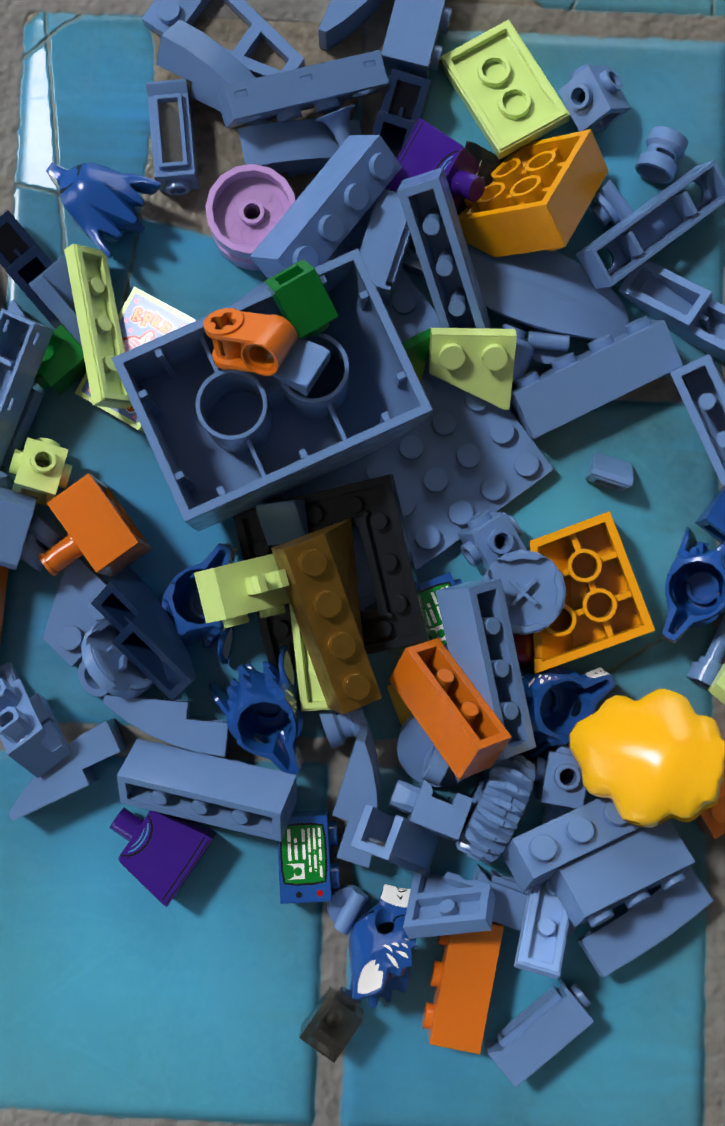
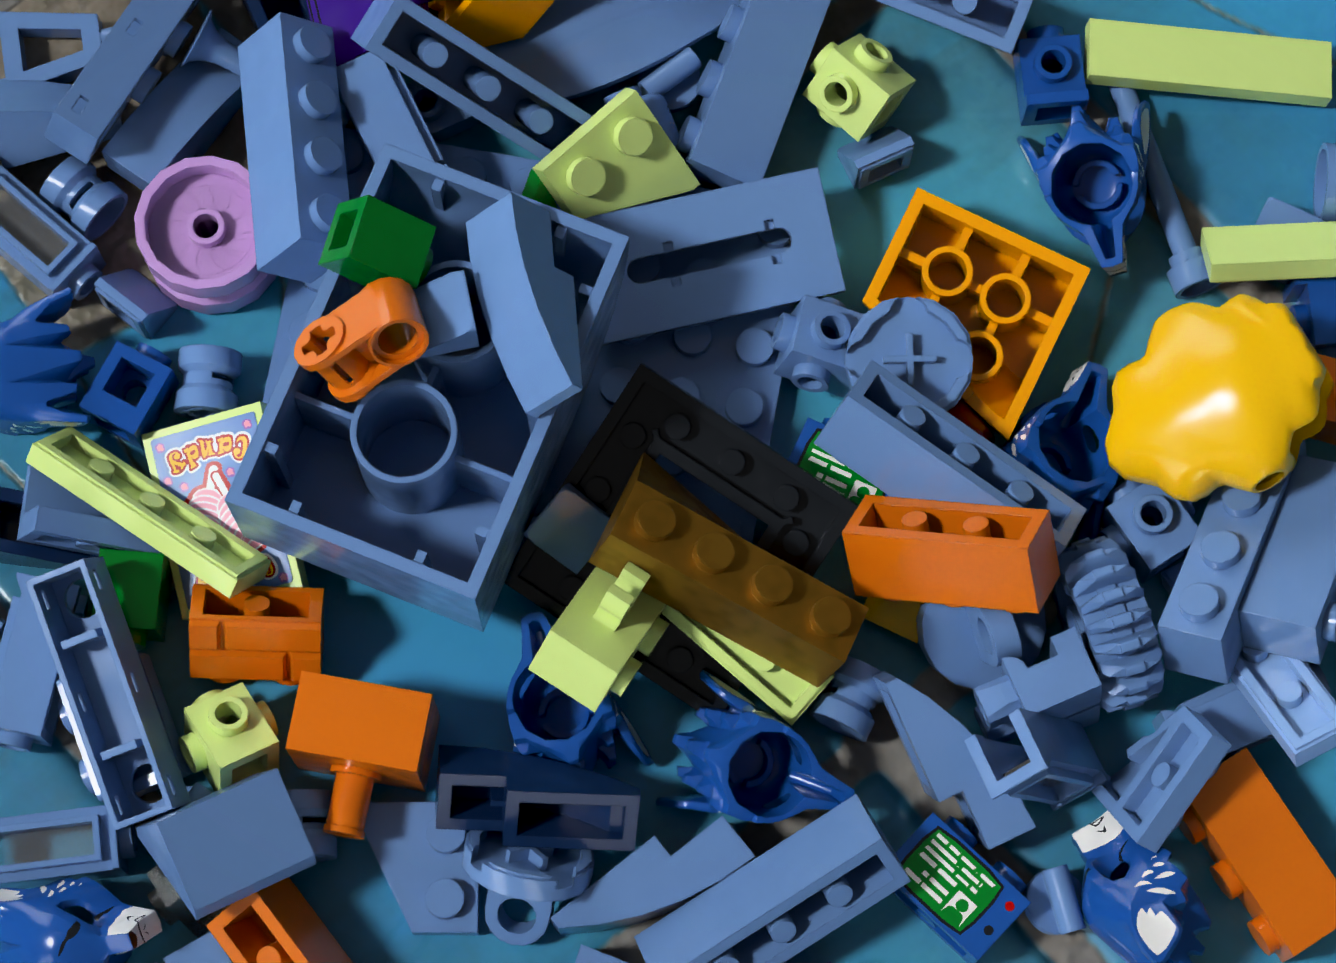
camera: 45 degrees left, 10 degrees down
(98, 433) = (256, 633): none -> orange brick
(138, 252) = (120, 372): none -> blue brick
(189, 289) = (207, 380): none -> medium blue wheel
(192, 218) = (135, 301): none -> medium blue slope
(214, 145) = (83, 197): none -> medium blue wheel
(348, 396) = (526, 302): none -> medium blue slope
(539, 457) = (778, 202): none -> medium blue piece
(632, 430) = (857, 85): none -> yellowish green brick

